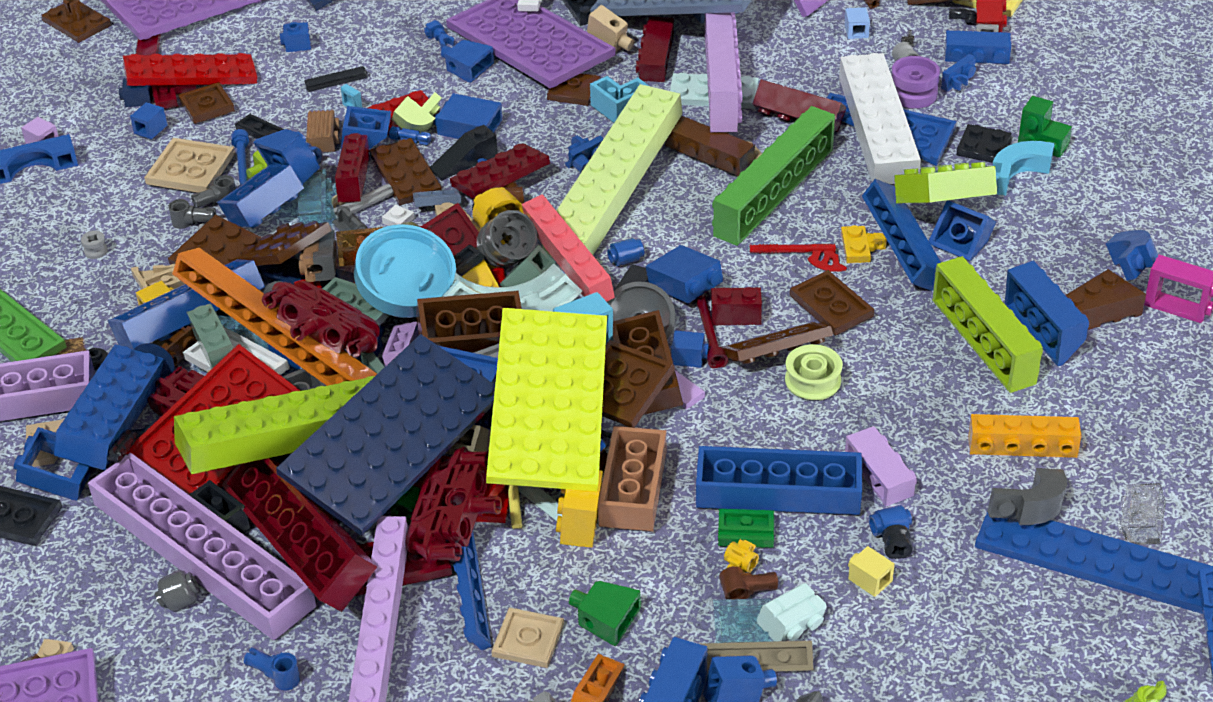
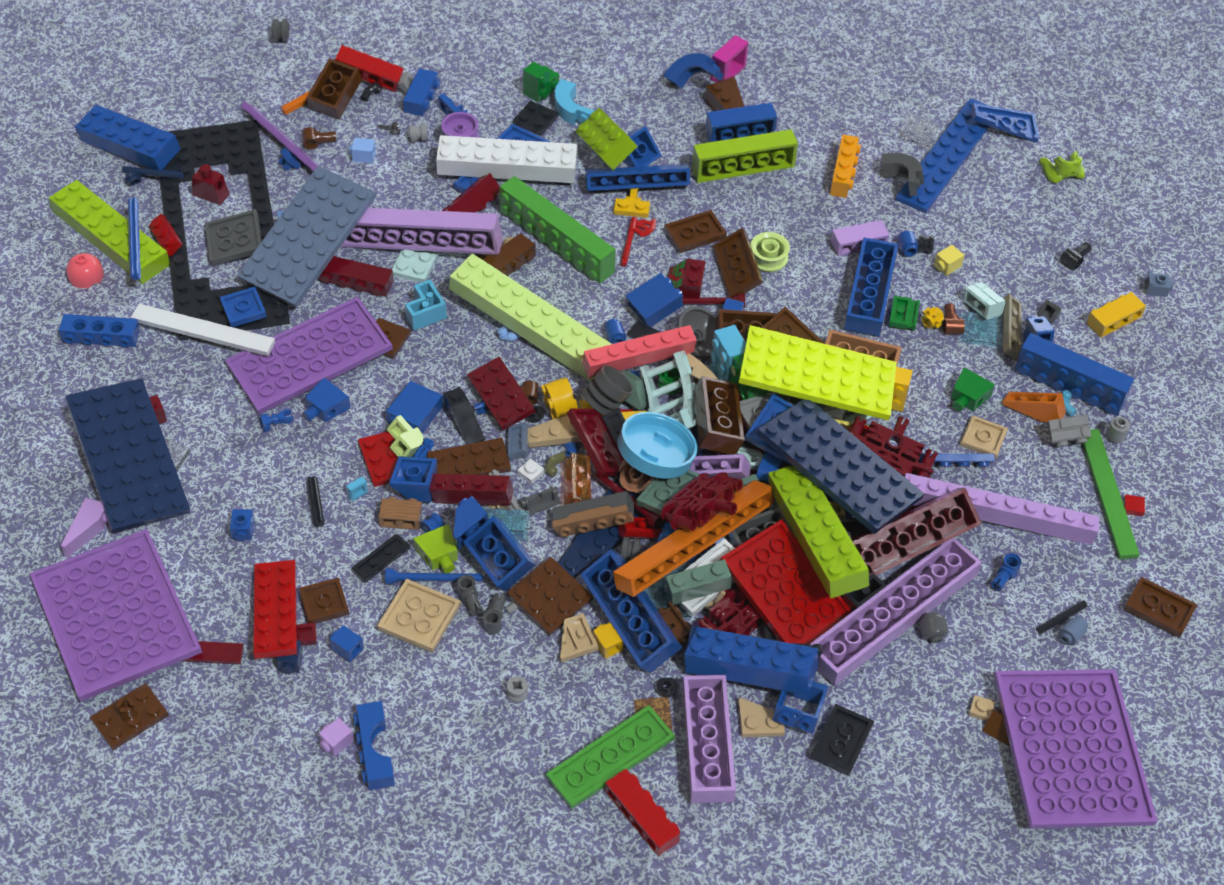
camera: 85 degrees left, 10 degrees up
(284, 243) = (575, 537): reddish brown plate -> none
(581, 151) = (484, 340): blue hips -> none
(609, 28) = (326, 297): tan torso -> none

